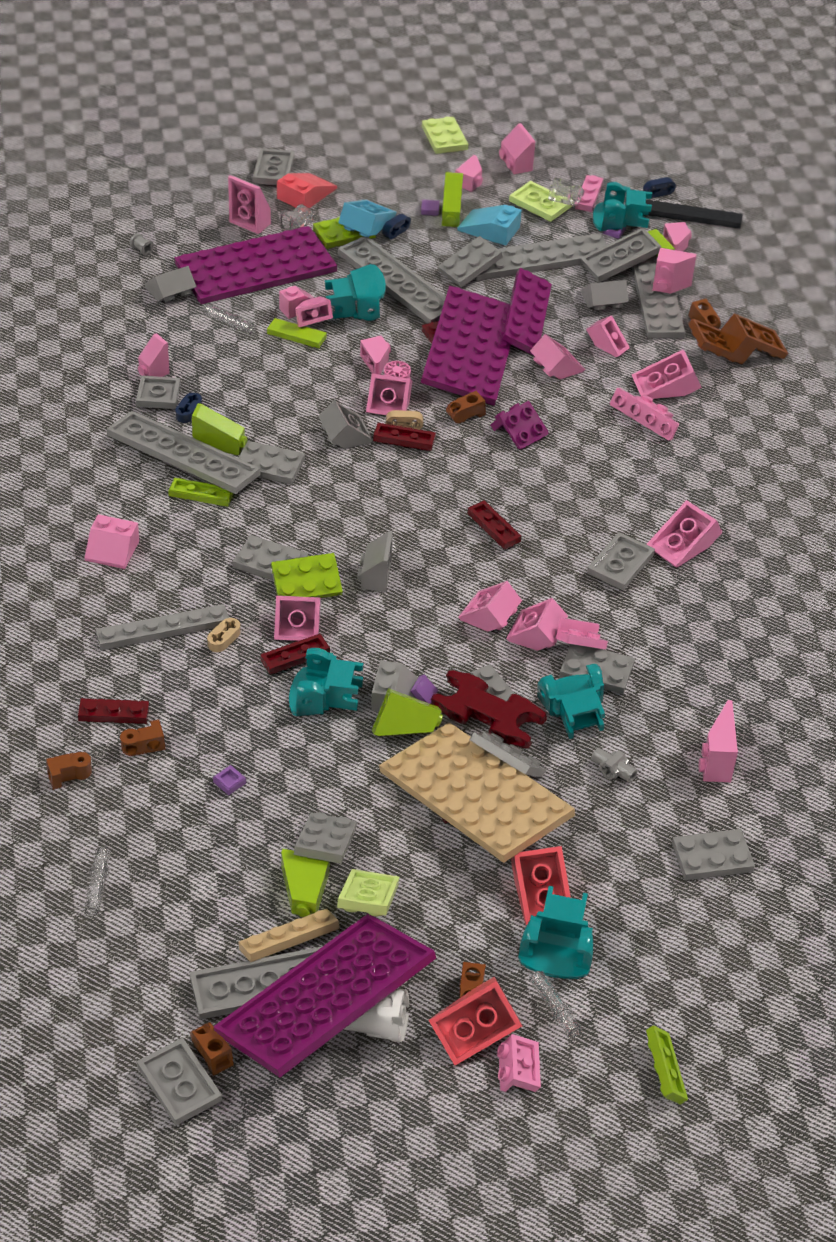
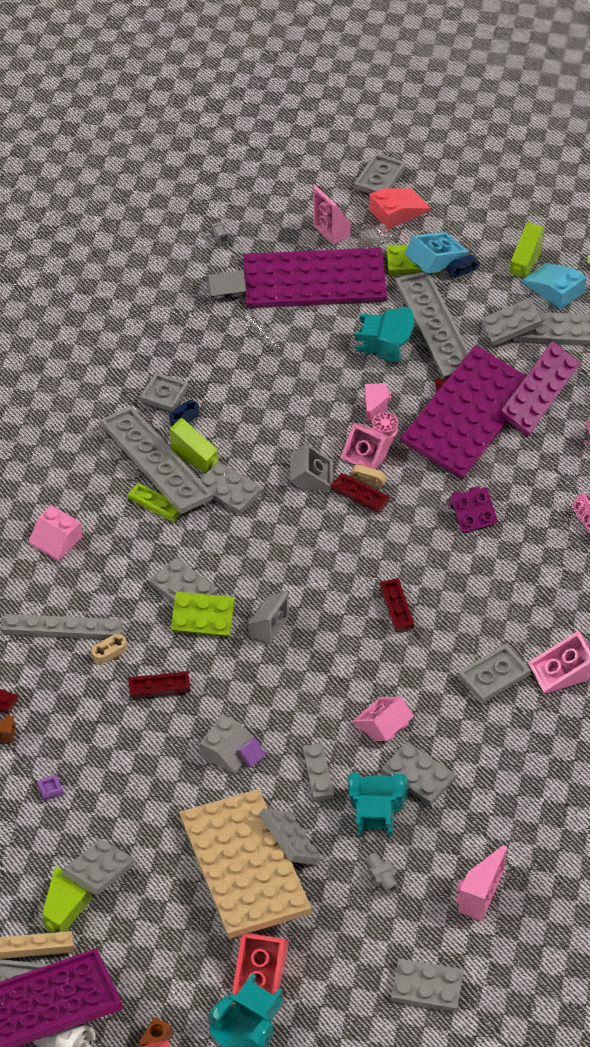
camera: 25 degrees right, 5 degrees up
(154, 358) = (172, 359): bright pink slope -> none
(290, 299) = (331, 327): bright pink slope -> none
(296, 617) = (176, 649): bright pink slope -> none
(297, 334) = (316, 359): lime tile -> none
(313, 311) = (337, 342): bright pink slope -> none
(324, 684) = (167, 722): teal piece -> none
(368, 892) = (107, 928): yellowish green plate -> none
(405, 715) = (221, 773): lime slope -> none
(430, 207) = (506, 251): medium lavender tile -> none
(444, 135) = (561, 173): yellowish green plate -> none
(466, 407) = (430, 477): dark orange leg -> none
(471, 173) = (560, 224): bright pink slope -> none
(491, 607) = (351, 688): bright pink slope -> none
(501, 715) = (306, 799): dark red piece -> none
(555, 358) = (542, 446): bright pink slope -> none
(580, 633) = (414, 738): bright pink bracket -> none

